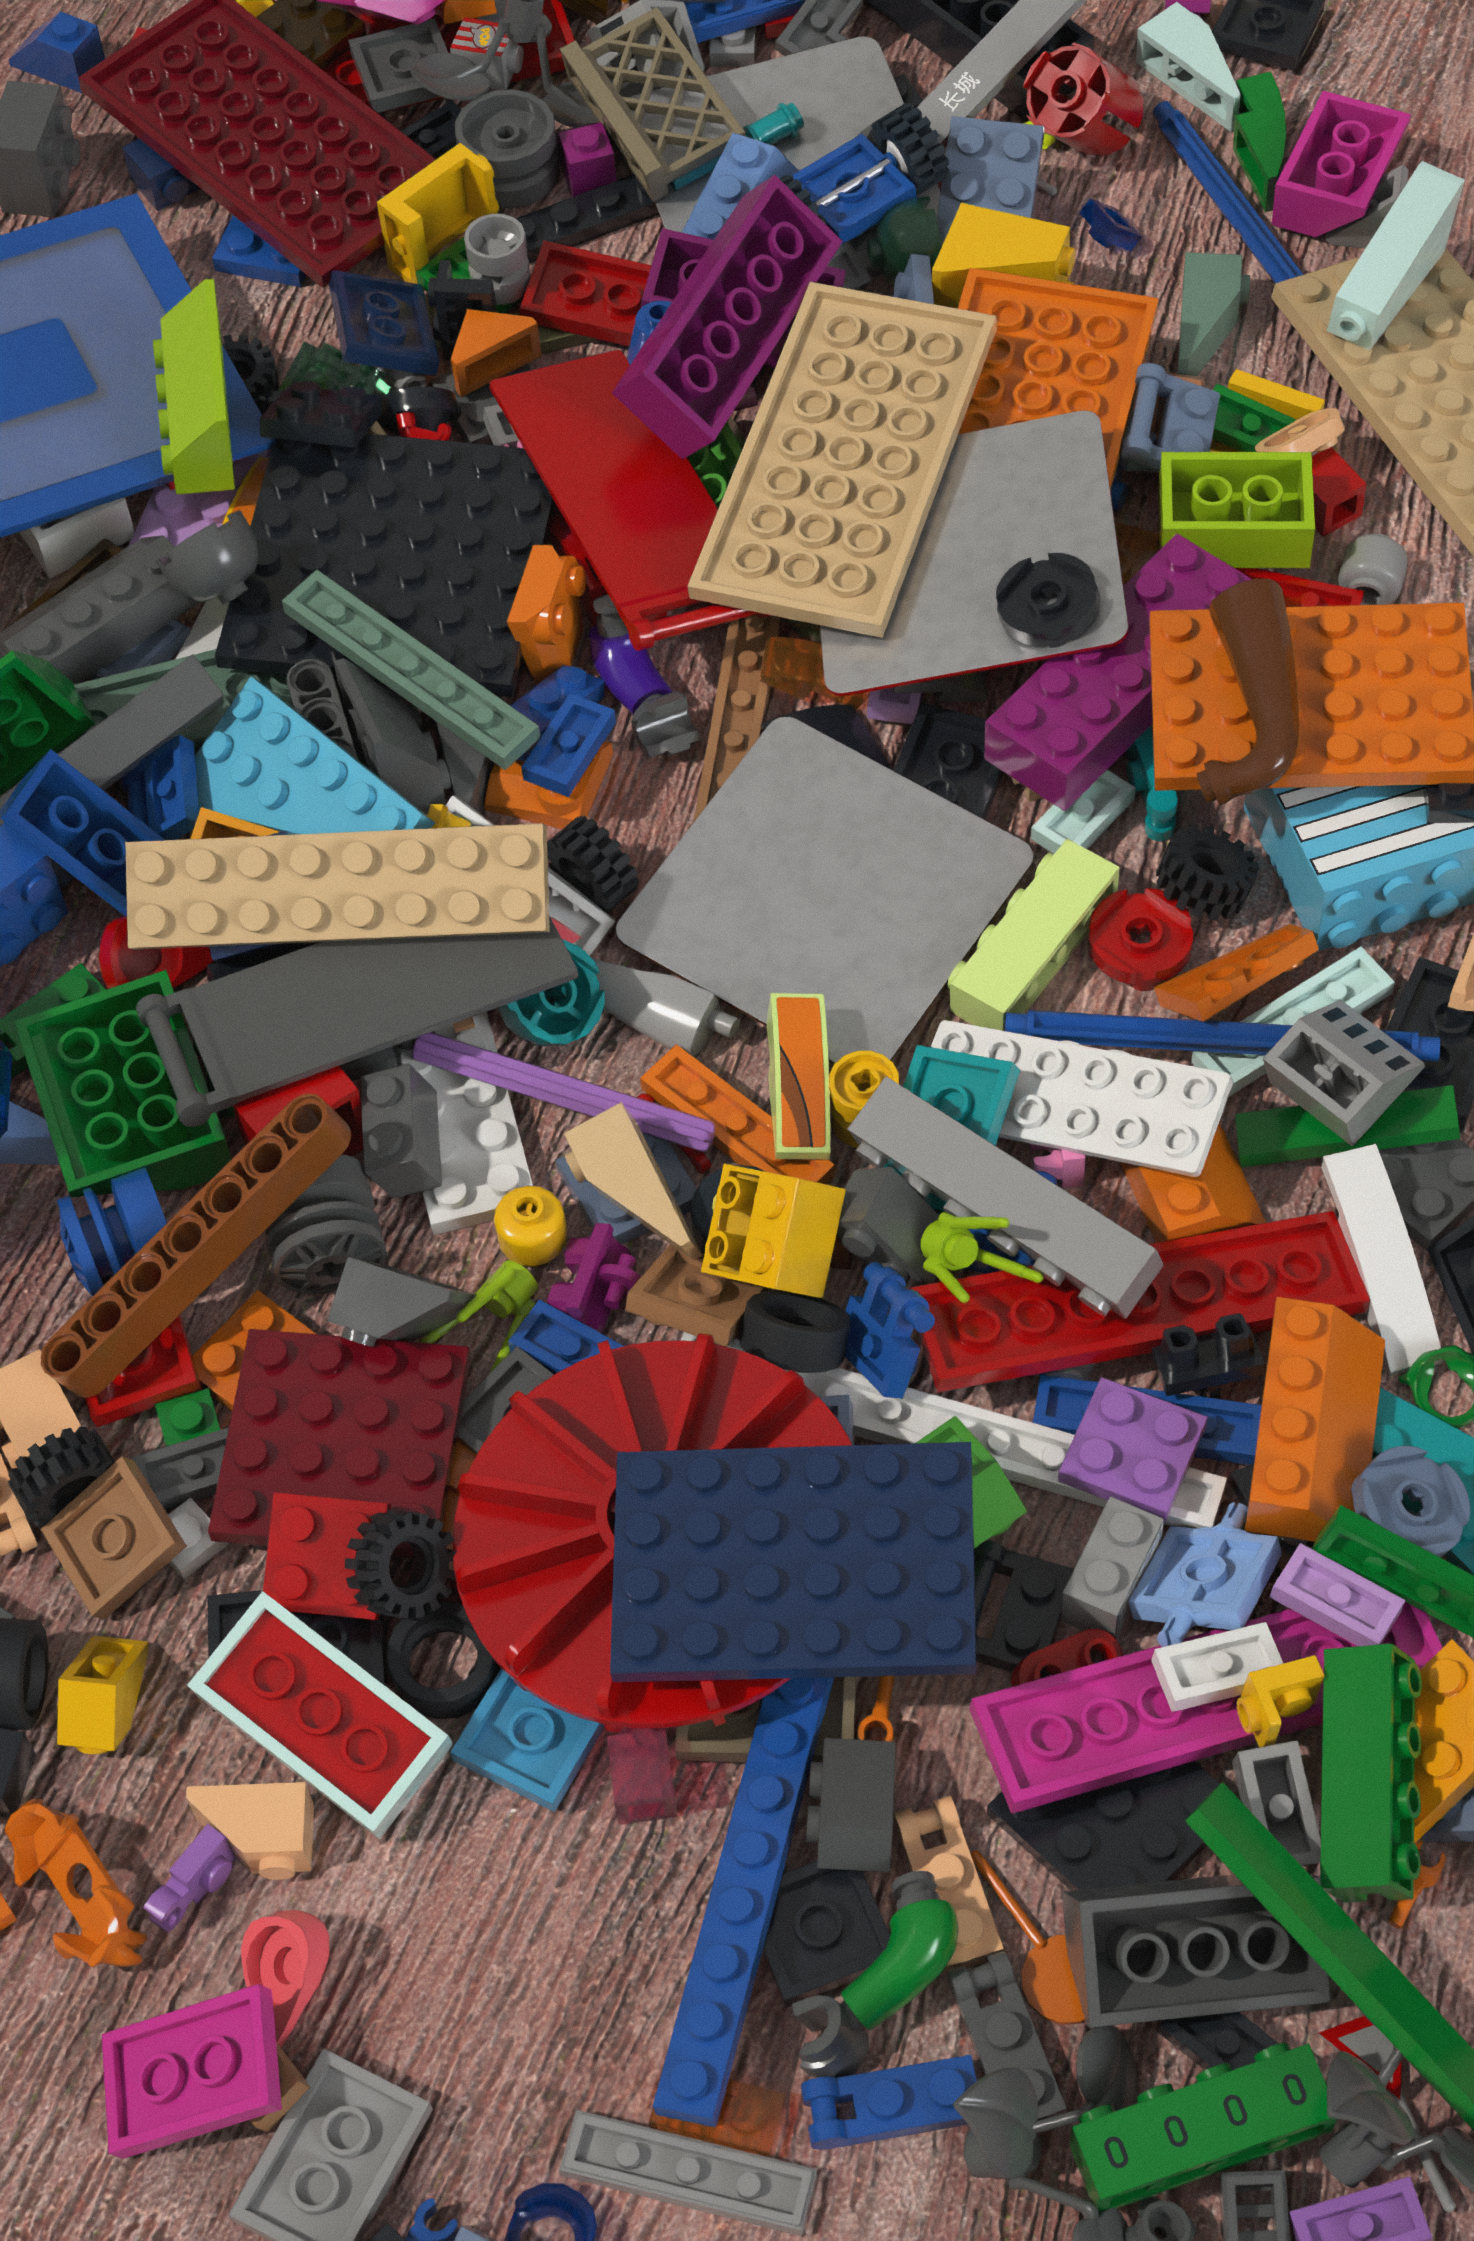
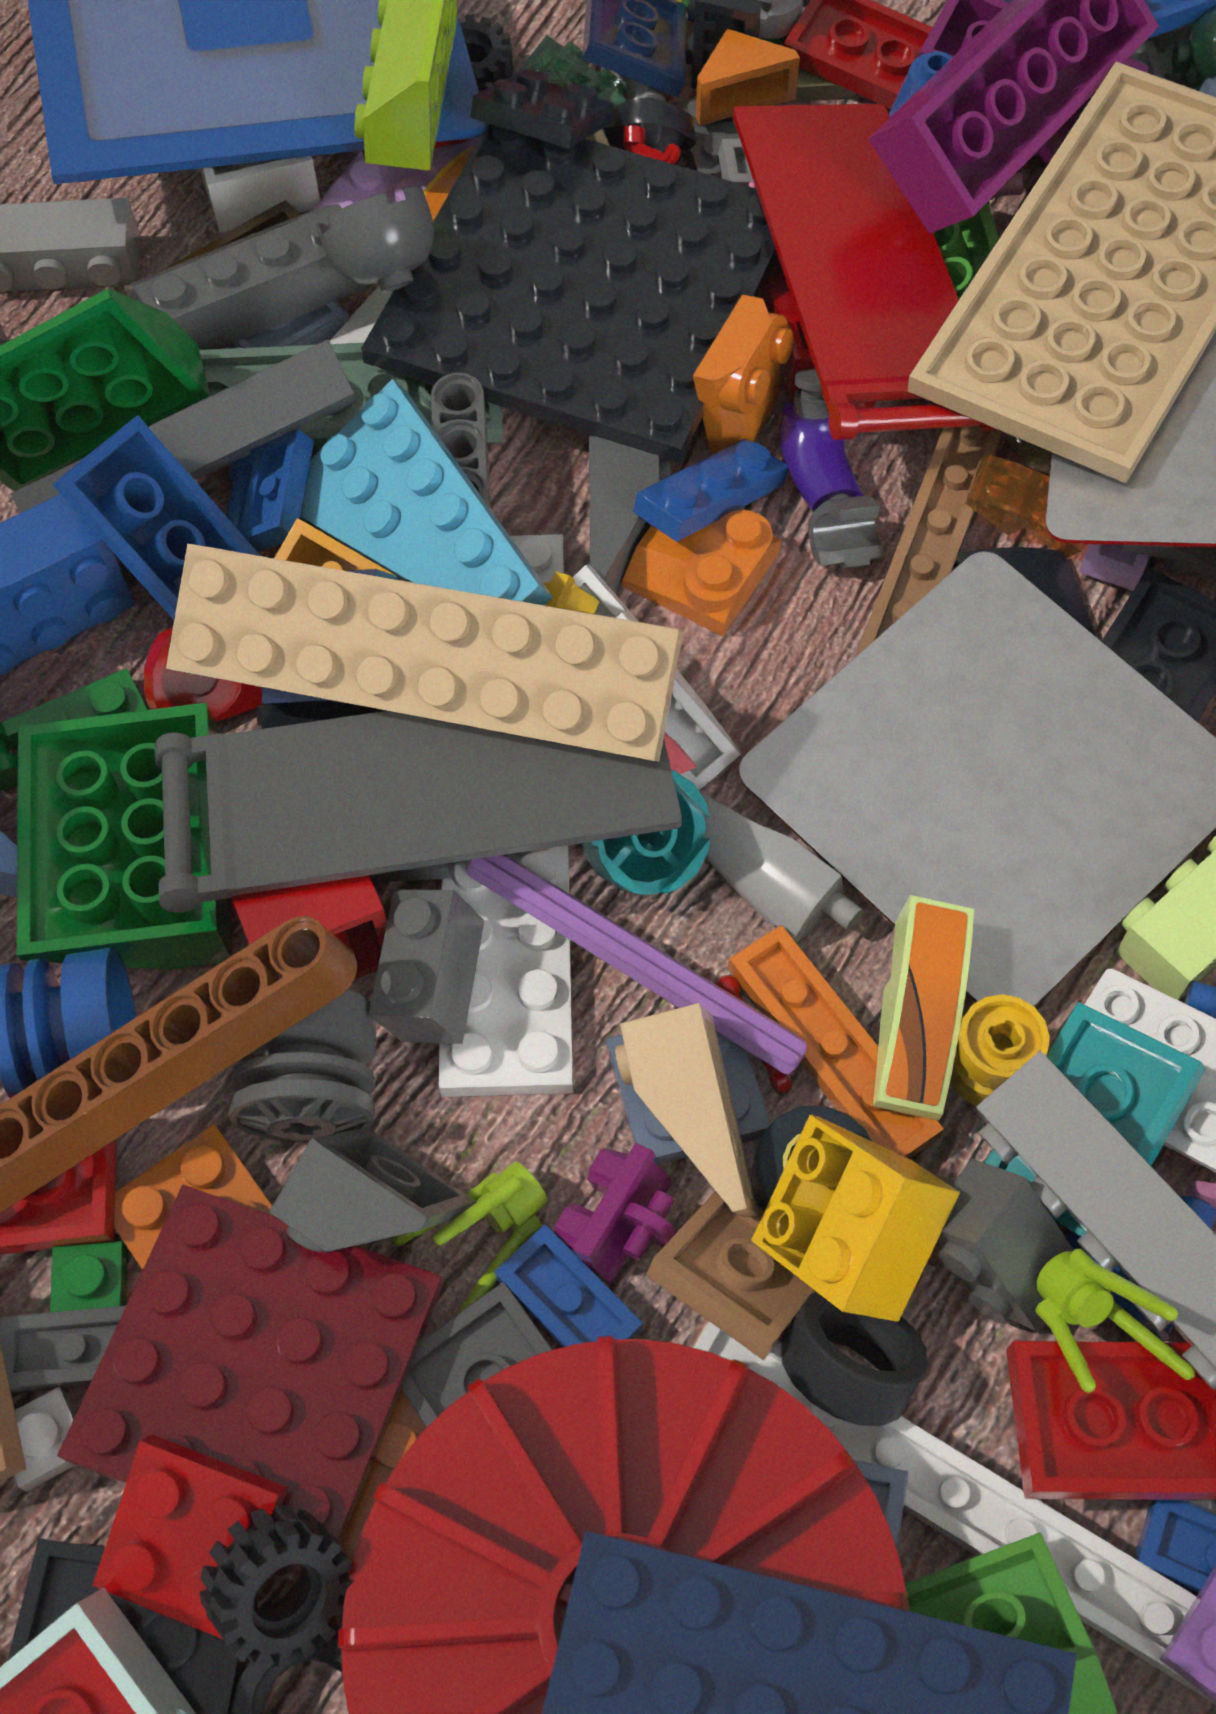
camera: 10 degrees right, 5 degrees up
(391, 737) = (534, 484): dark grey slope -> none
(411, 669) = (574, 411): sand green plate -> none
(530, 1225) = (556, 1122): yellow head -> none
(569, 744) = (732, 533): blue plate -> none
(592, 863) = (729, 679): black tyre -> none
(880, 1342) = (963, 1408): blue plate -> none

